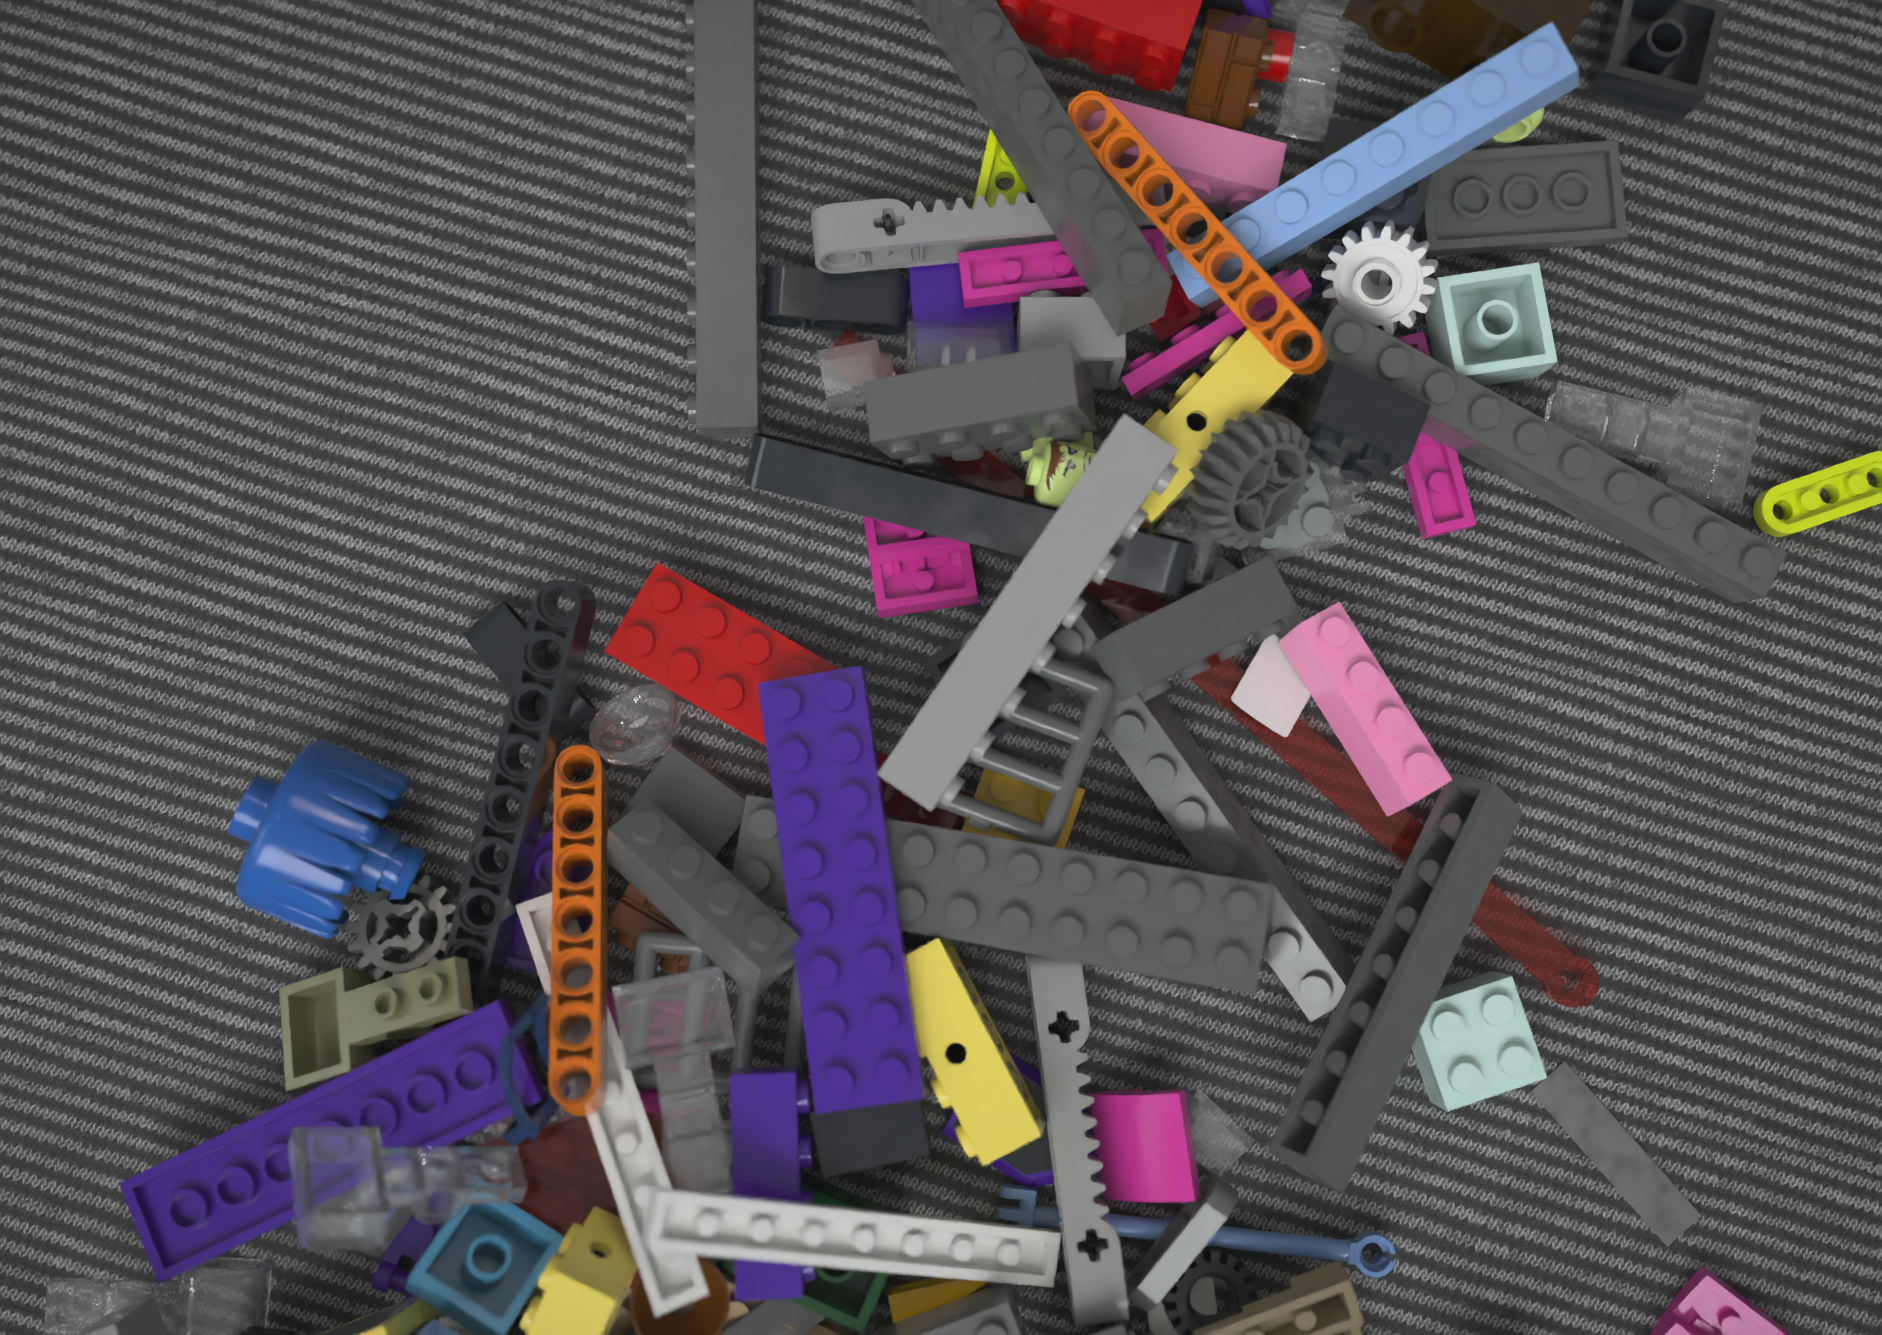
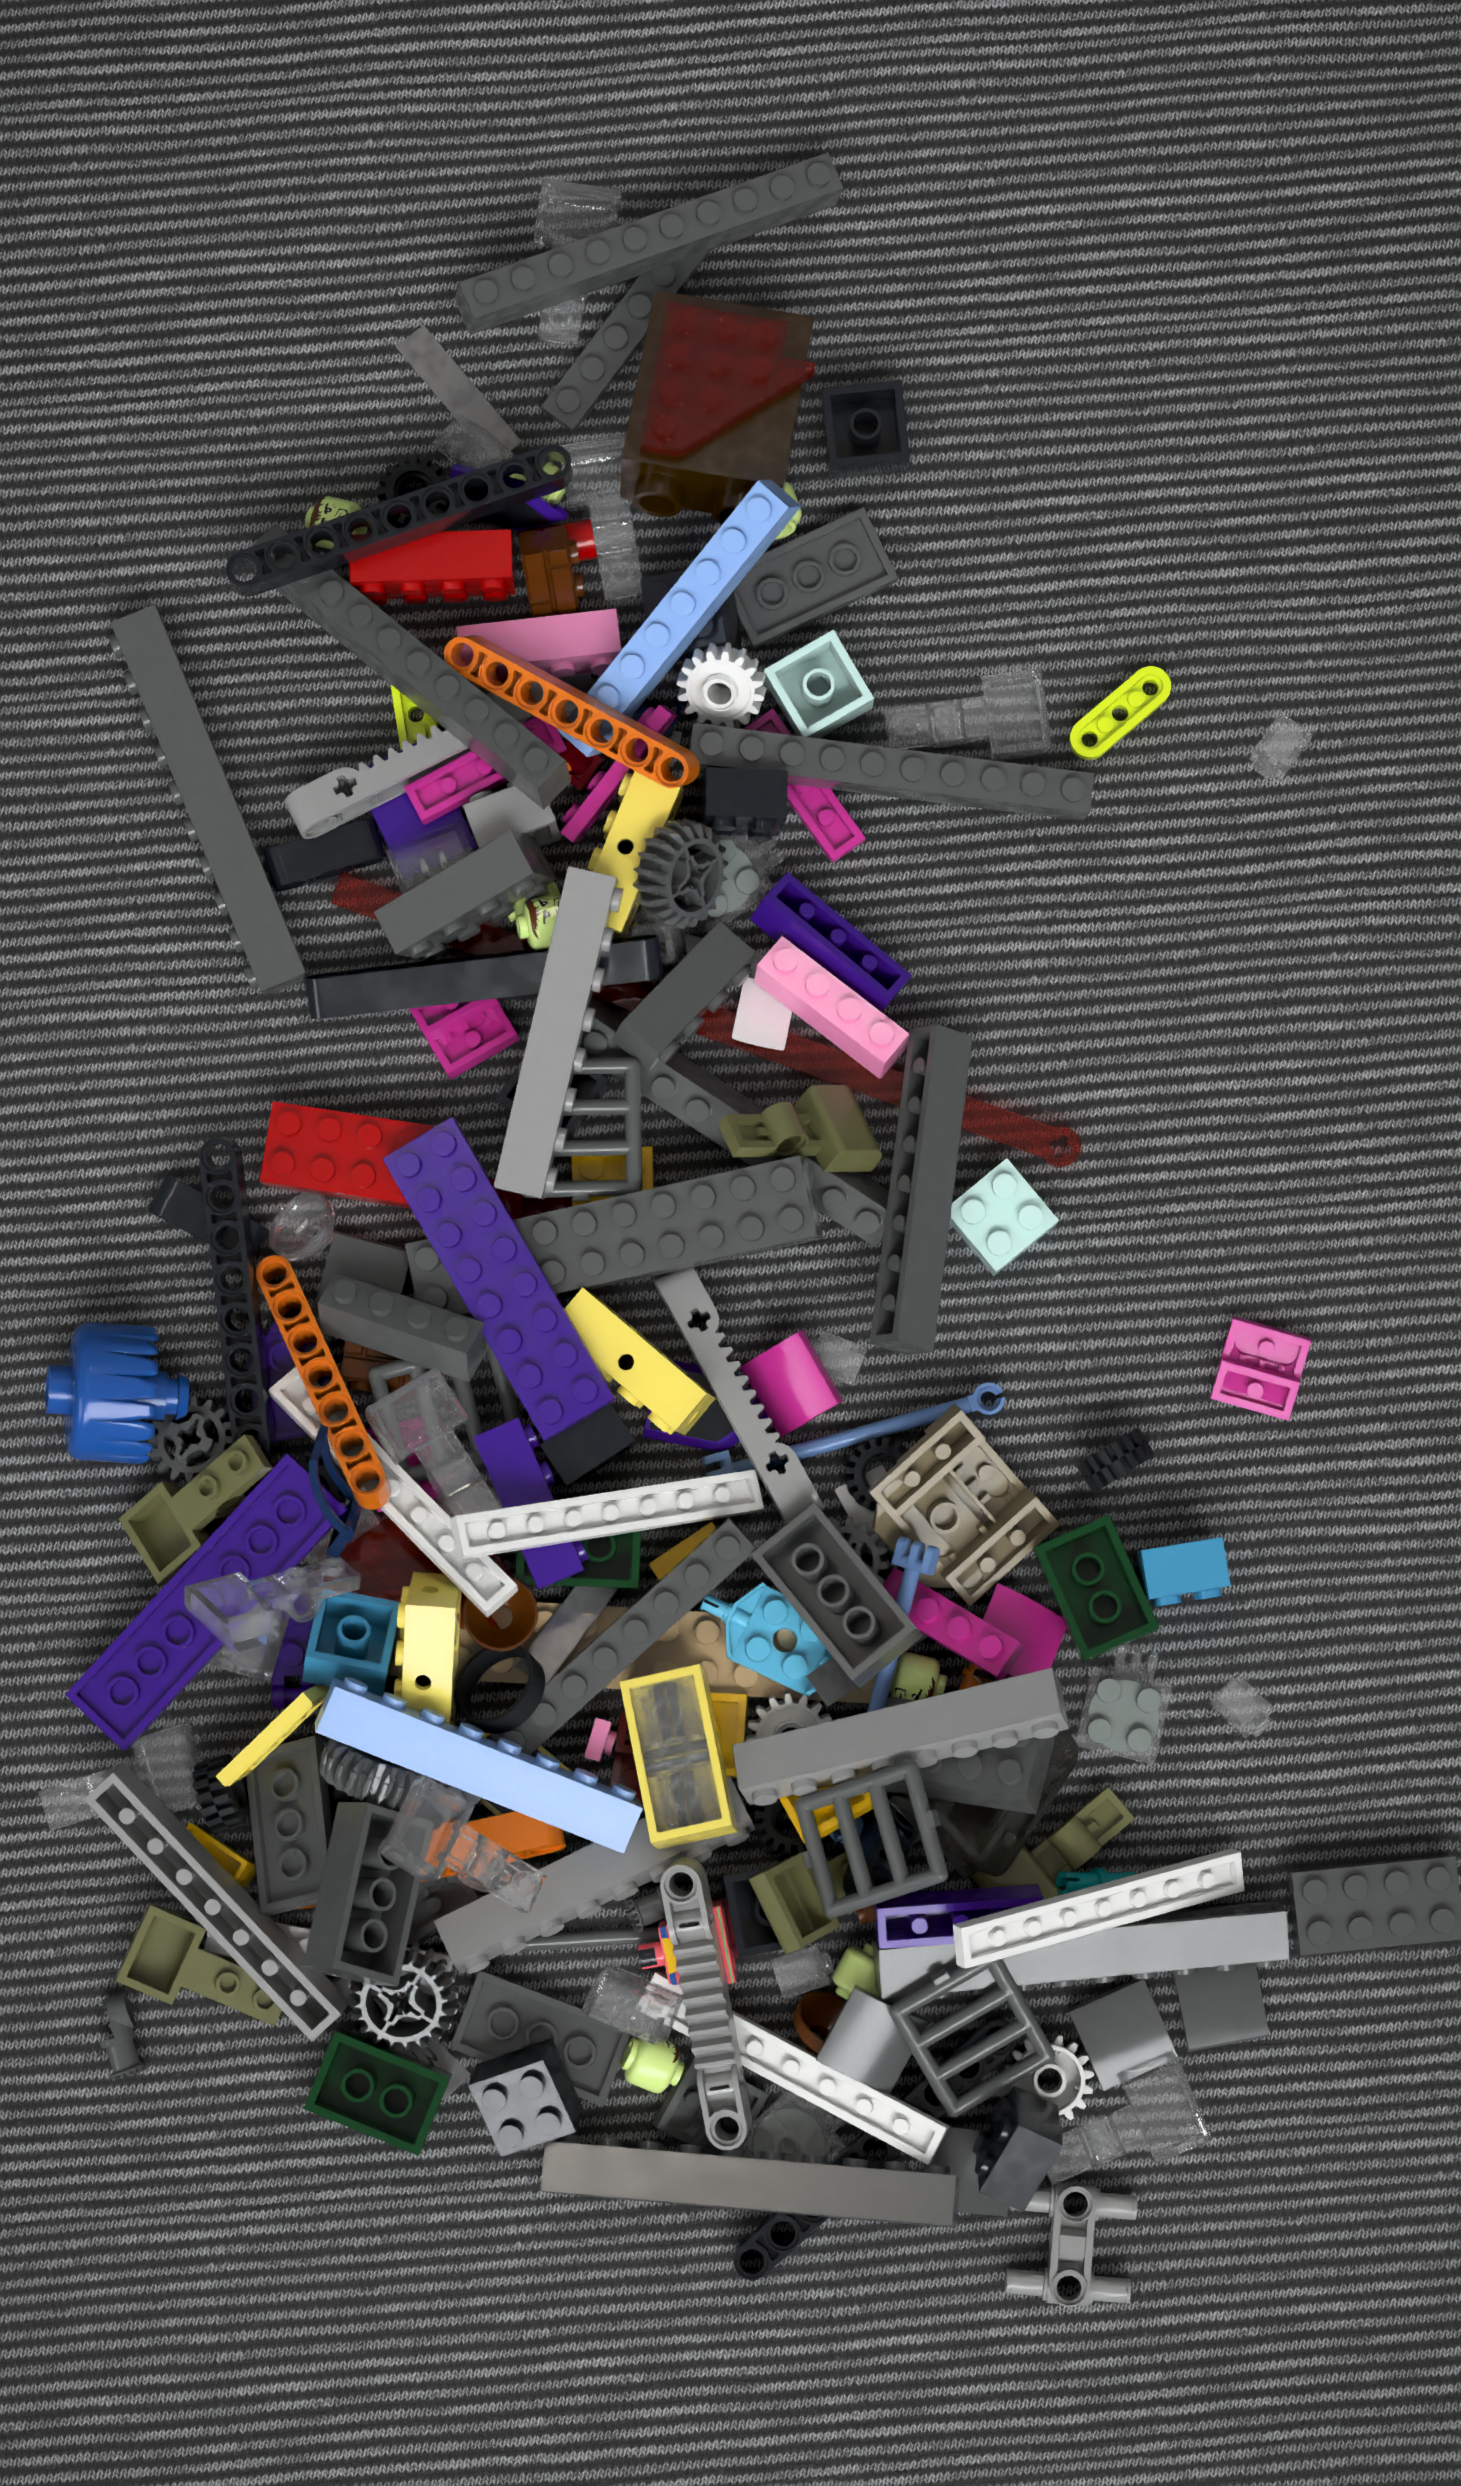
camera: 20 degrees left, 0 degrees up
(847, 368) = (357, 905): clear brick -> none
(1180, 1243) = (842, 1441): dark grey beam -> none
(1298, 845) = (820, 1124): none -> olive plate
(1394, 629) = (830, 941): none -> dark purple brick
(1616, 1153) = (1142, 1260): flat silver sticker -> none

